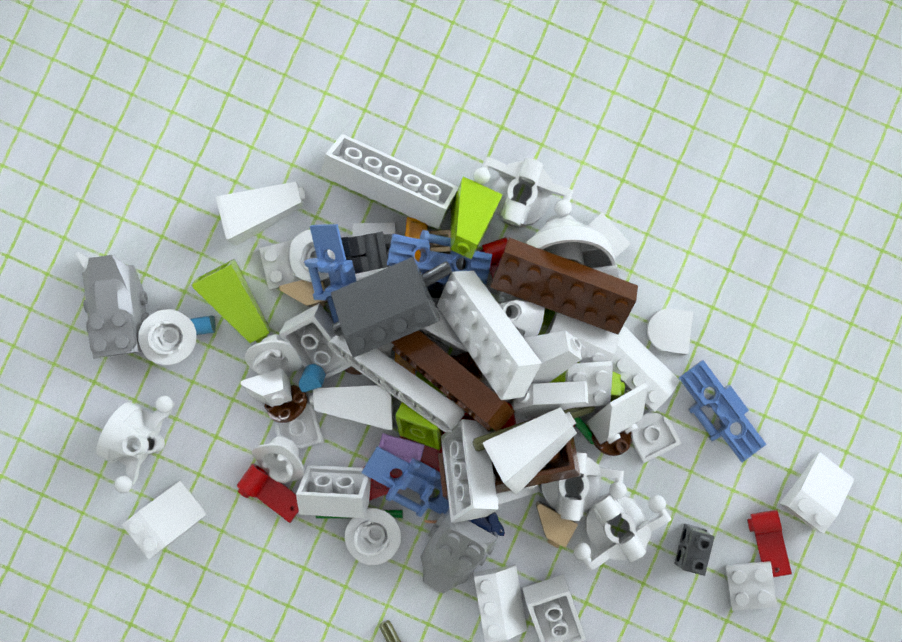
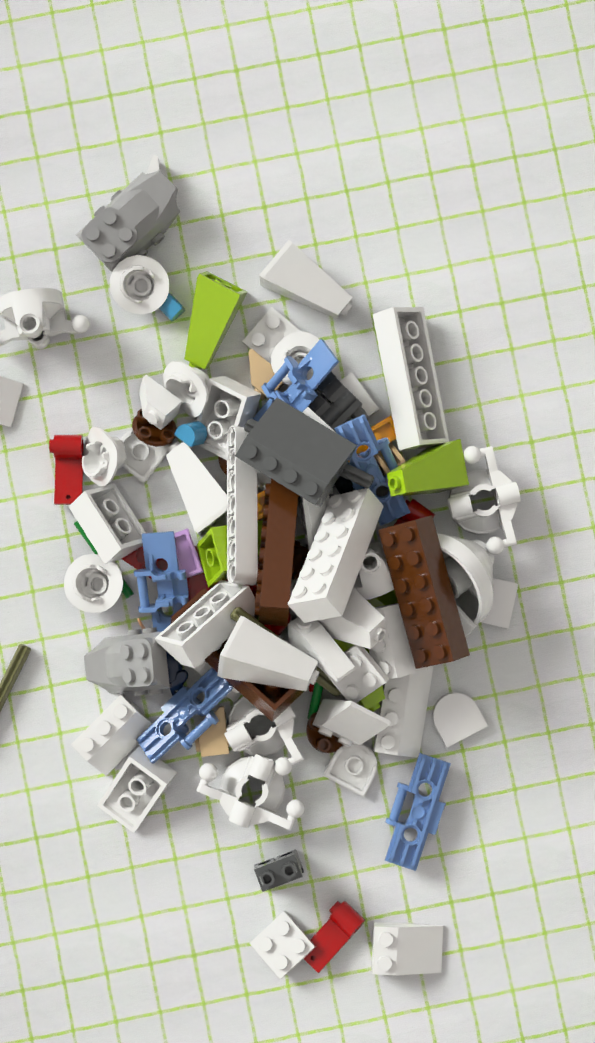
camera: 55 degrees right, 0 degrees up
(518, 538) = (179, 711): none -> medium blue piece

